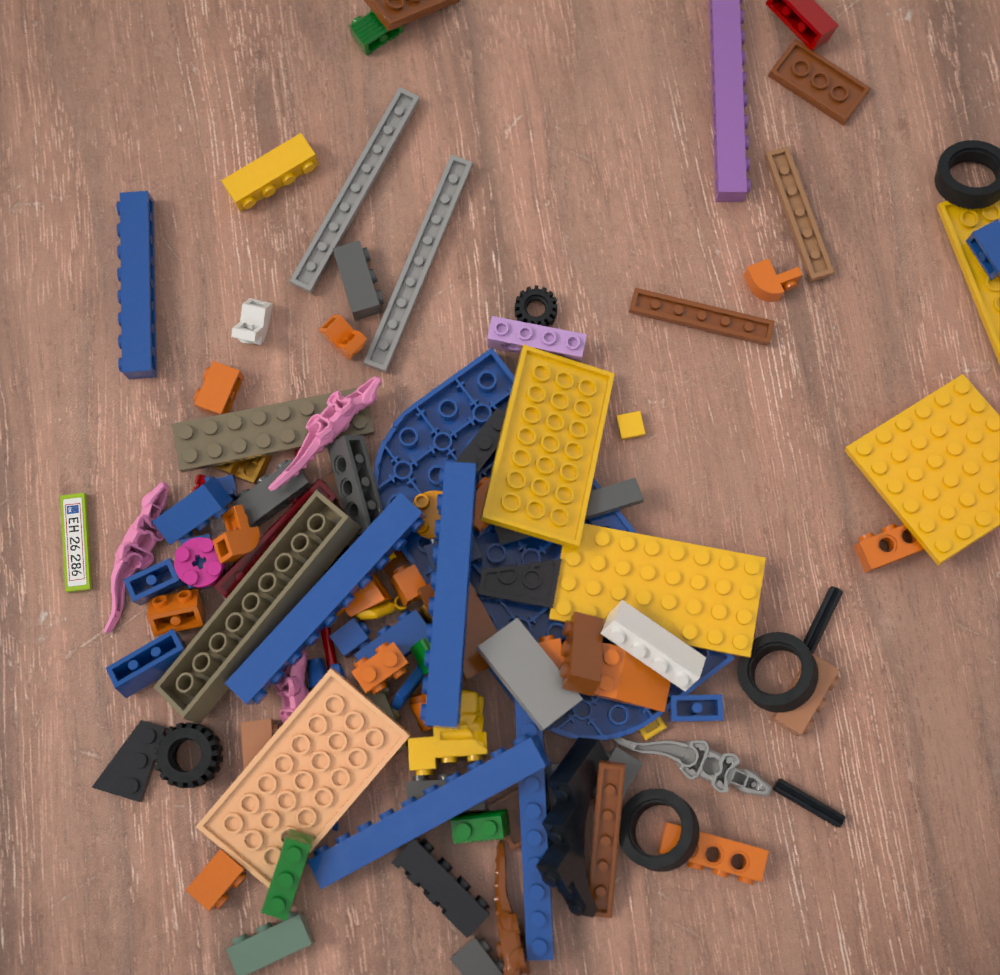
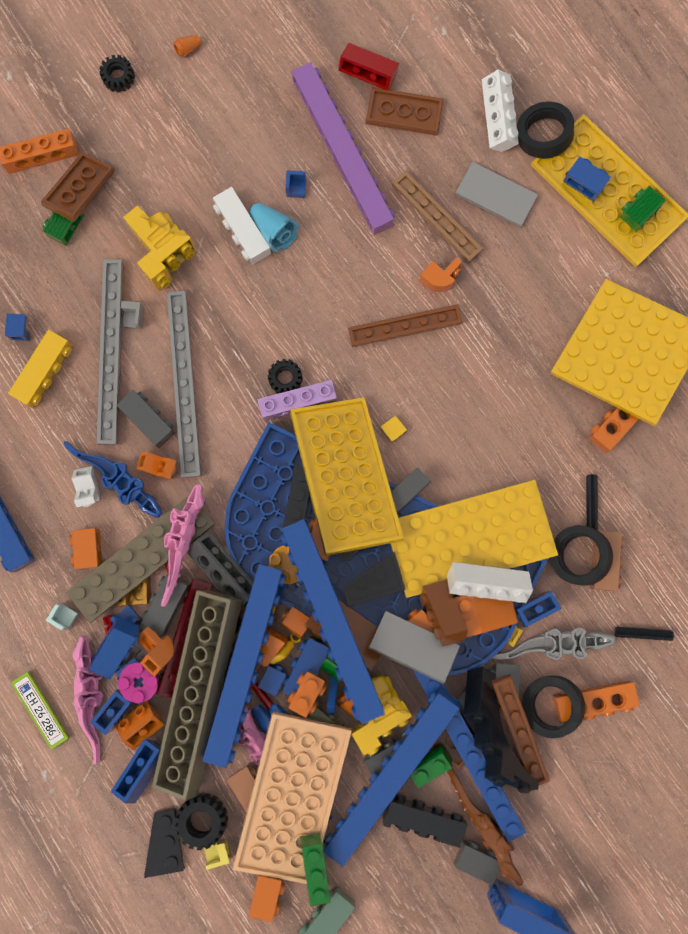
camera: 25 degrees left, 5 degrees up
(153, 450) = (62, 616): none -> light aqua panel
(188, 802) = (218, 854): none -> light yellow panel
(266, 115) = (16, 327): none -> blue panel
(293, 330) = (117, 478): none -> blue animal
(402, 161) = (132, 314): none -> light grey panel
(475, 102) = (165, 243): none -> yellow brick
(571, 122) = (241, 225): none -> white brick
(607, 139) = (274, 226): none -> medium azure cone
(655, 104) = (295, 184): none -> blue panel
(880, 221) = (496, 194): none -> light grey tile
(929, 130) = (500, 111): none -> white brick

